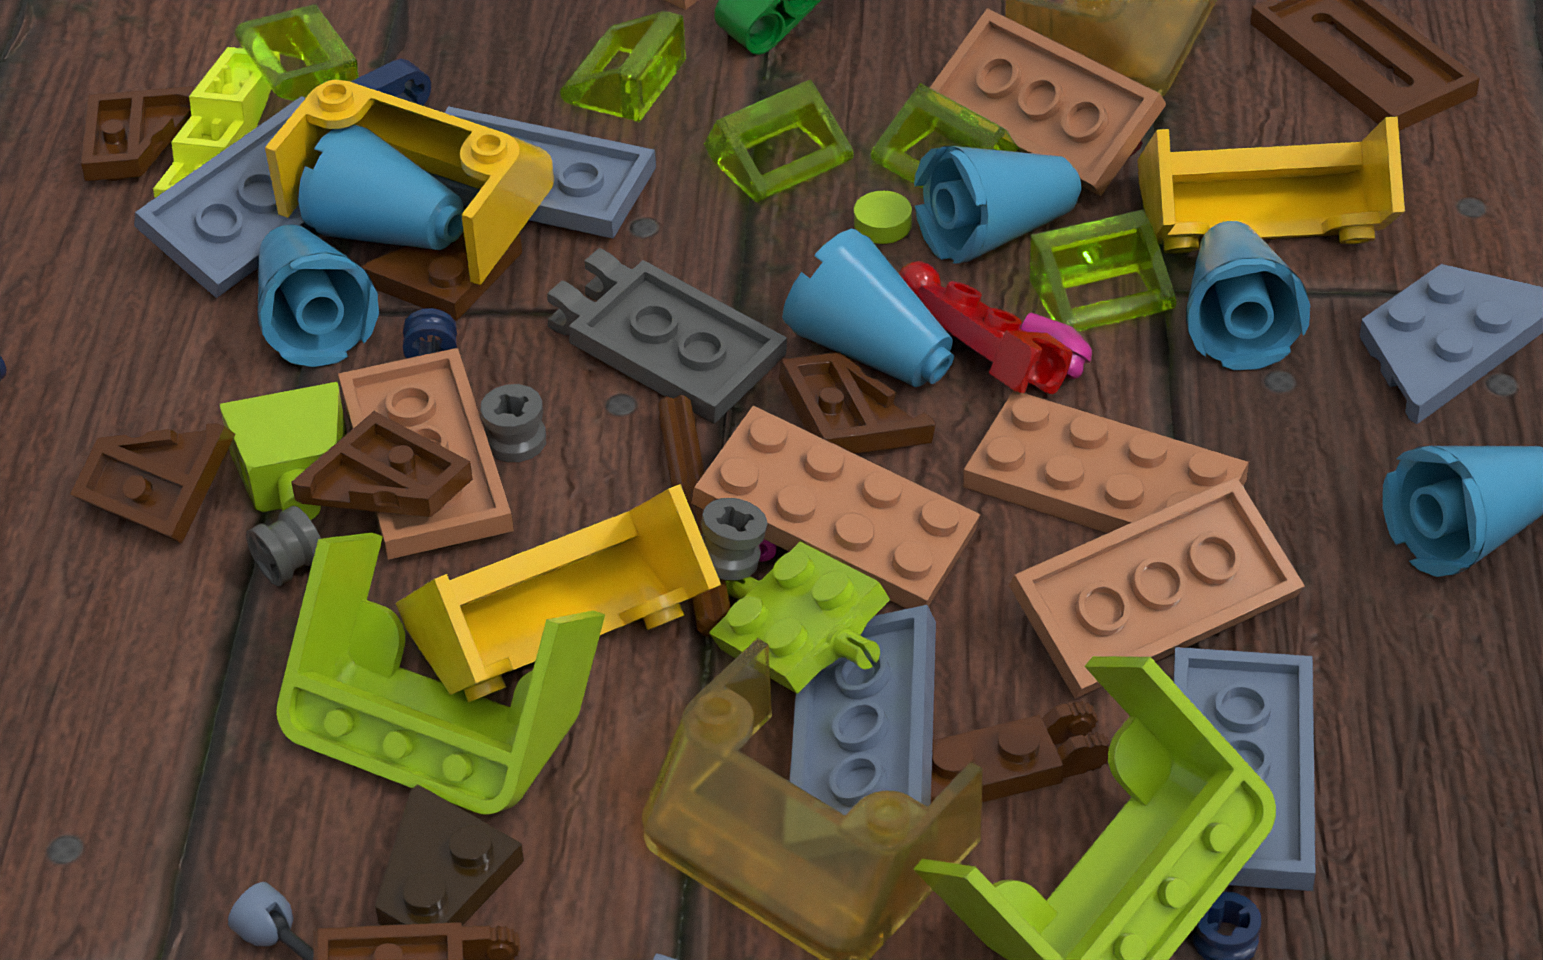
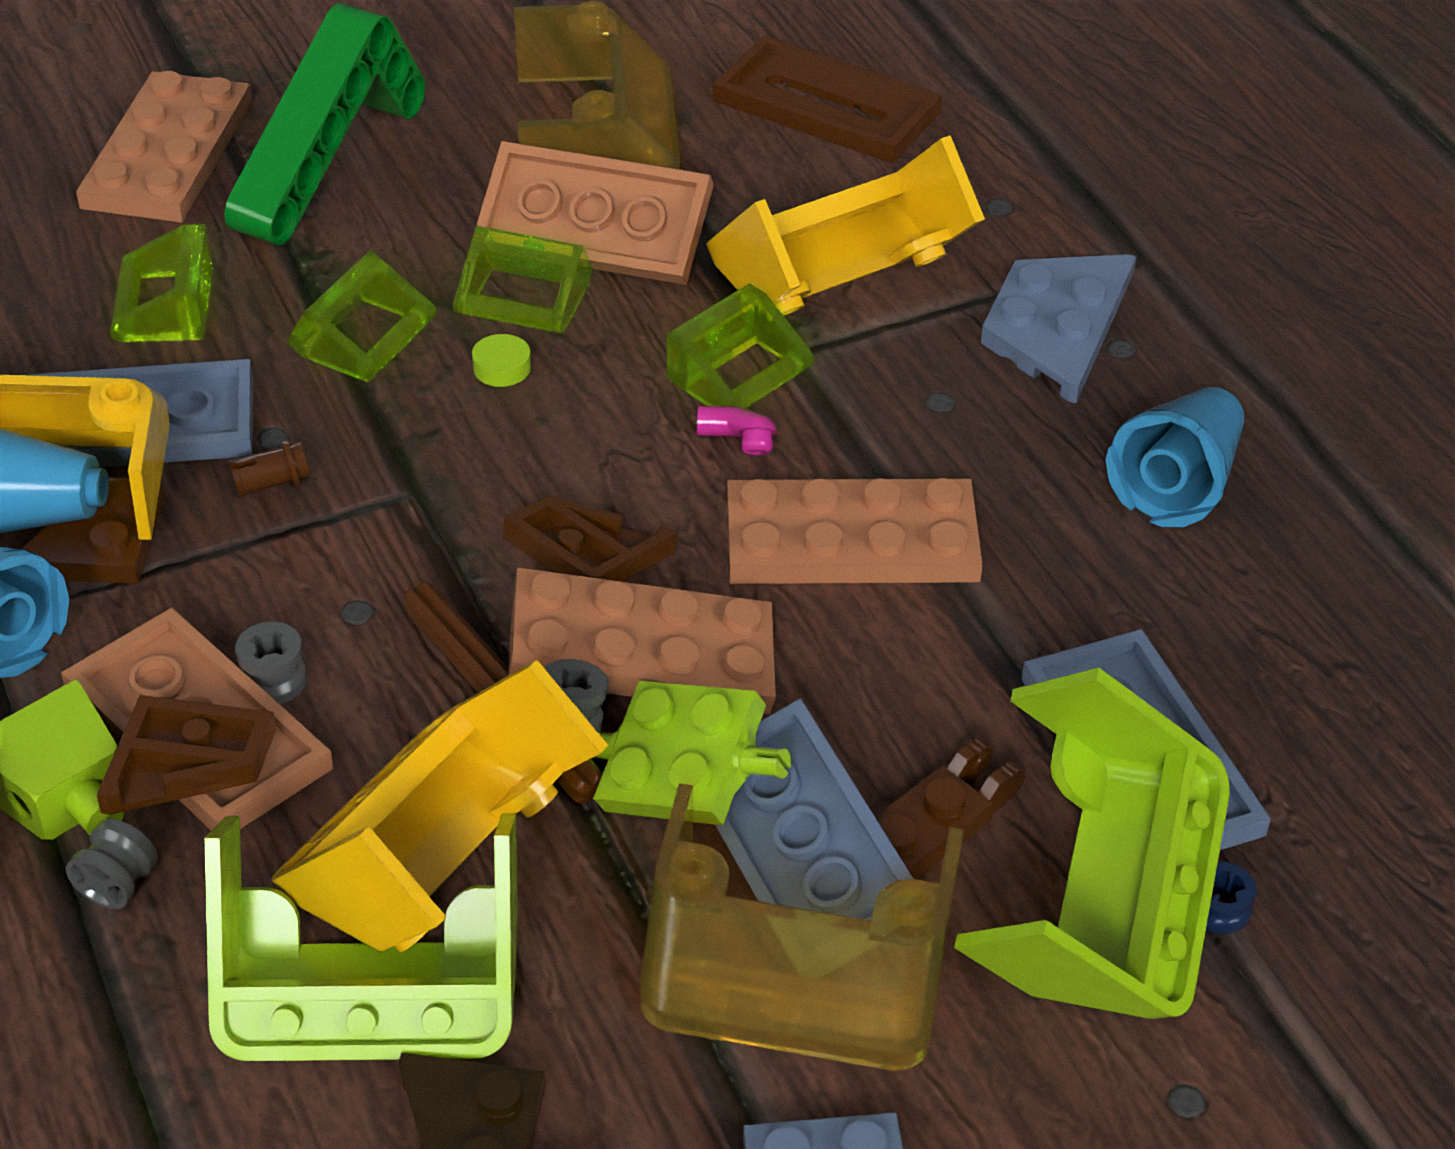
camera: 30 degrees left, 0 degrees up
(425, 323) = (124, 595): dark blue bush -> none
(627, 249) = (270, 468): none -> reddish brown pin
(666, 334) = (363, 529): dark grey tile -> none
(868, 313) = (563, 450): dark azure cone -> none
(989, 197) = (597, 315): dark azure cone -> none
(992, 332) = (722, 447): red plate -> none
(1157, 583) = (972, 615): nougat plate -> none
(1244, 300) = (882, 333): dark azure cone -> none

